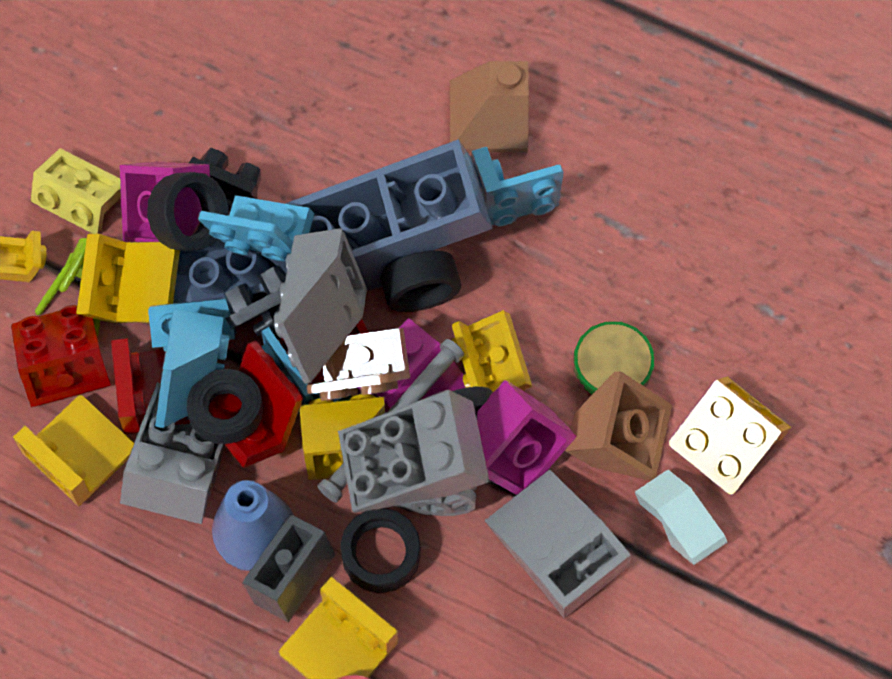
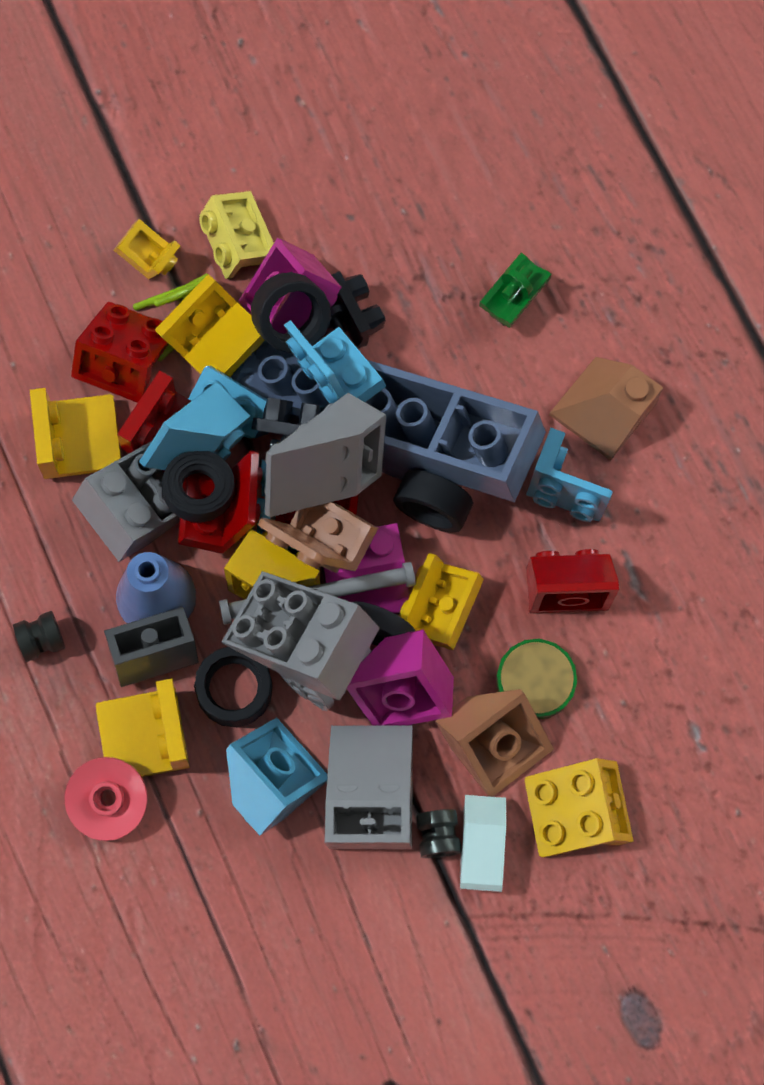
camera: 35 degrees right, 5 degrees up
(184, 634) = (38, 636): none -> pearl dark grey wheel
(345, 73) = (514, 290): none -> green hips
(471, 596) = (271, 775): none -> medium azure slope
(580, 264) = (571, 582): none -> red slope
(641, 536) = (438, 833): none -> pearl dark grey wheel

